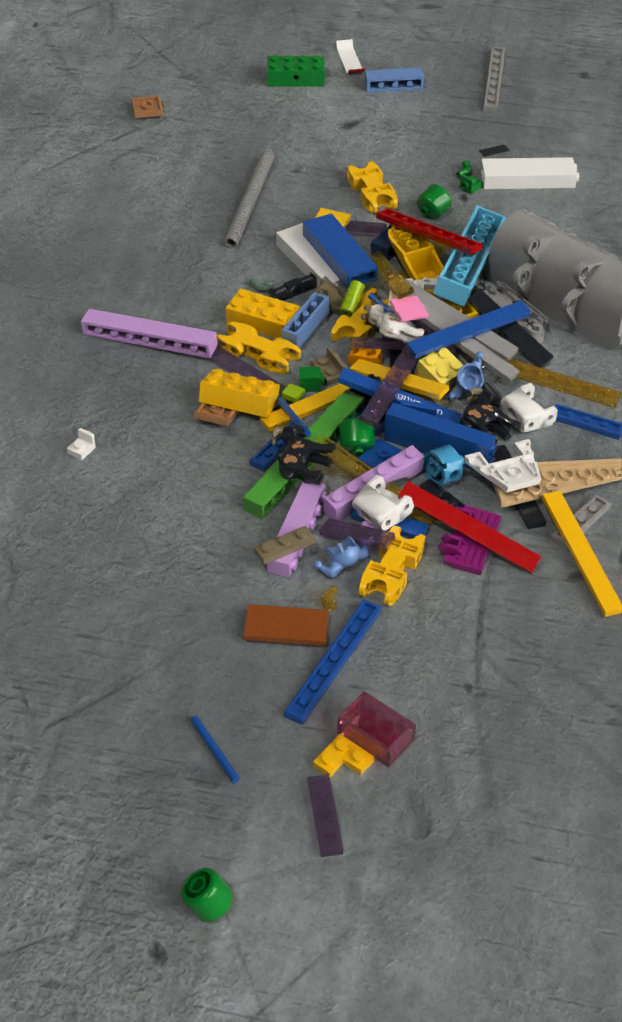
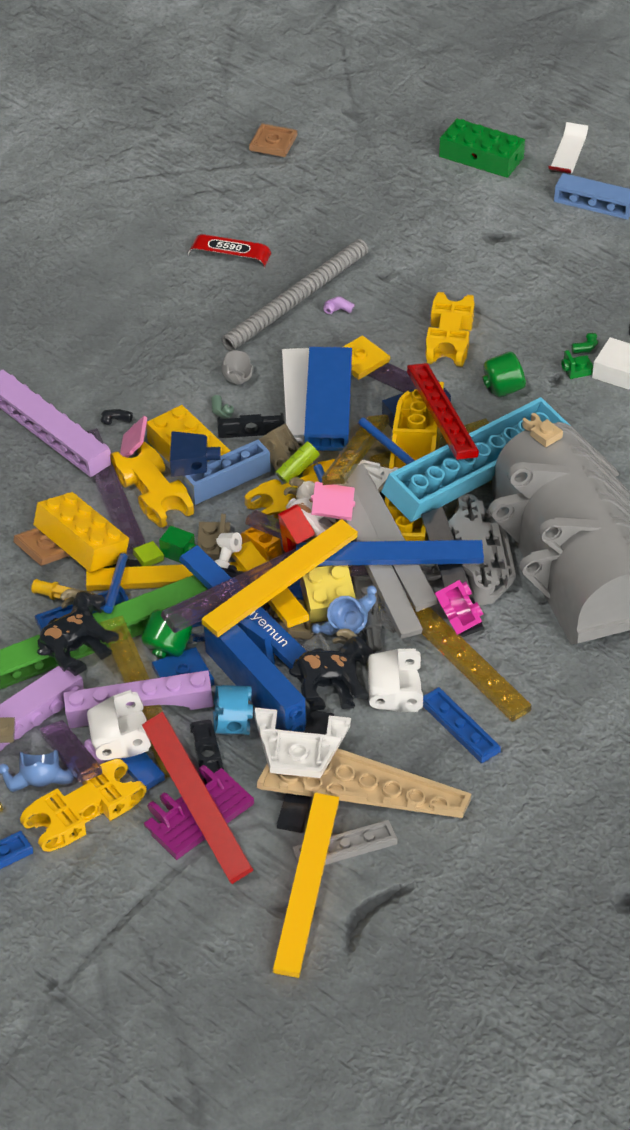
camera: 30 degrees right, 0 degrees up
(177, 181) = (232, 247): none -> red sticker
(193, 312) = (118, 414): none -> black arm
(221, 321) = (133, 438): none -> bright pink piece
(248, 439) = (49, 589): none -> yellow axle
(252, 255) = (237, 367): none -> light grey hair
(281, 314) = (190, 453): none -> dark blue torso
(283, 194) = (337, 303): none -> lavender arm
(352, 362) = (229, 543): none -> white leg
(401, 334) = (294, 527): none -> slope
(407, 264) = (383, 439): none -> blue bar
(416, 368) = (279, 578): none -> yellow tile
(521, 215) = (543, 432): none -> tan plate
(535, 349) = (458, 606): none -> dark pink cylinder

